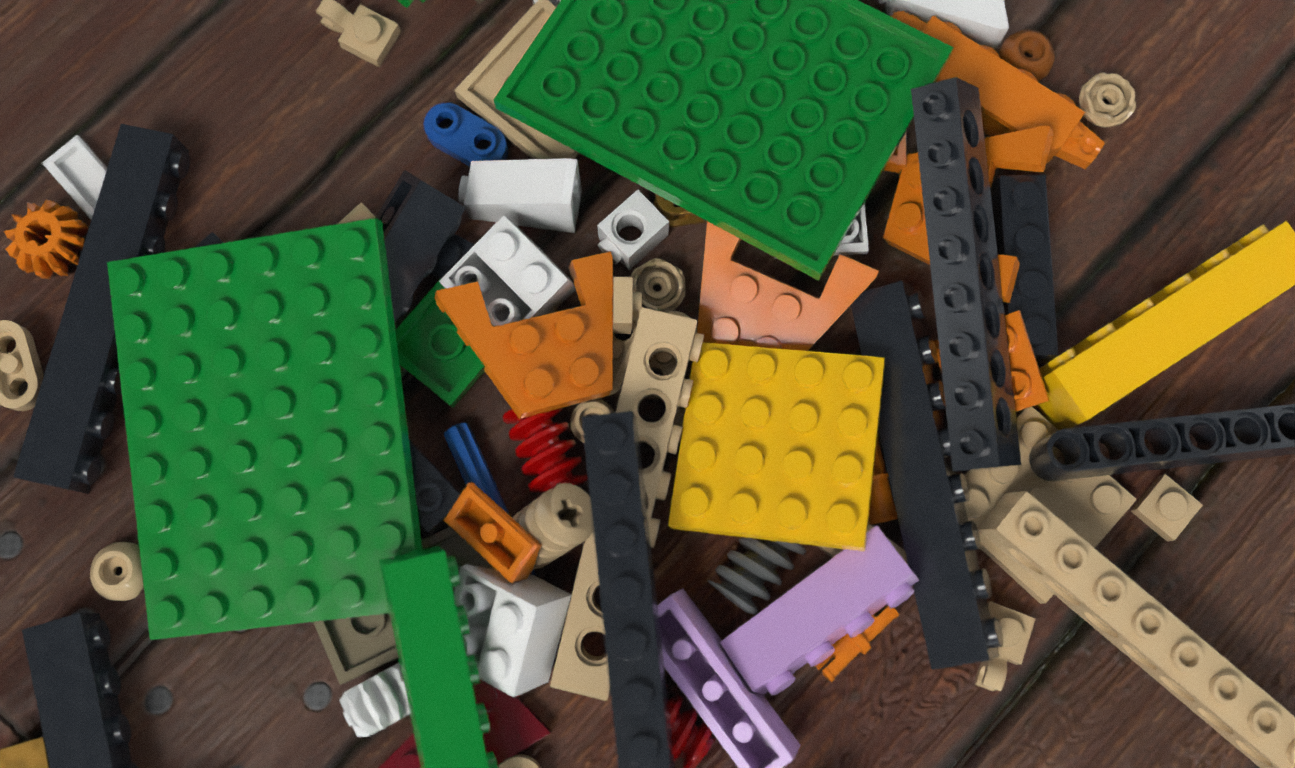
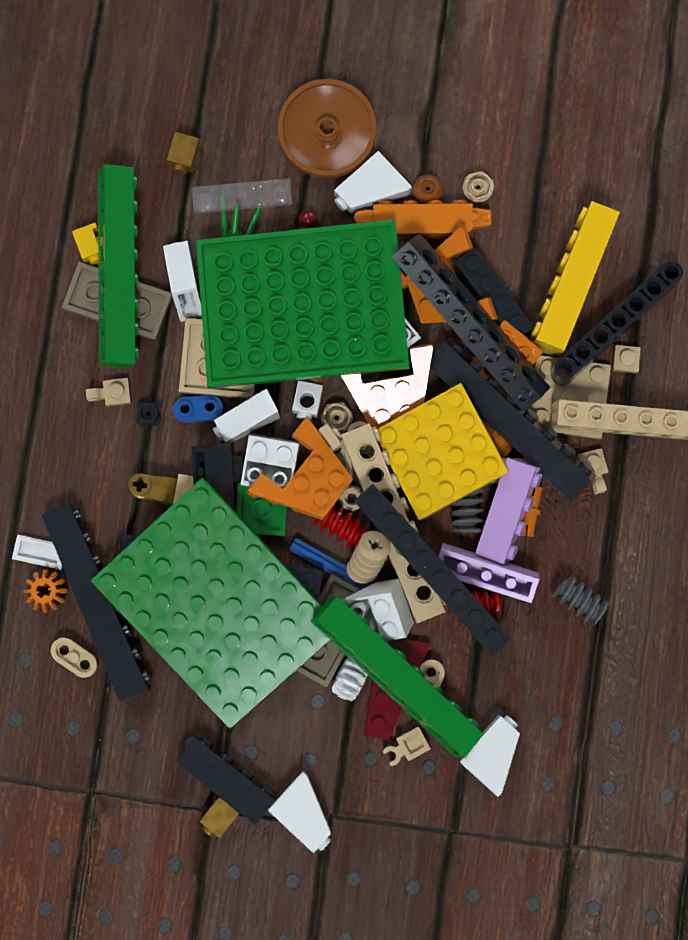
camera: 35 degrees left, 5 degrees up
(104, 575) = (186, 716): tan plate -> none
(316, 202) = (159, 488): none -> pearl gold piece
(383, 84) = (143, 408): none -> black plate
(493, 534) = (348, 576): orange slope -> none

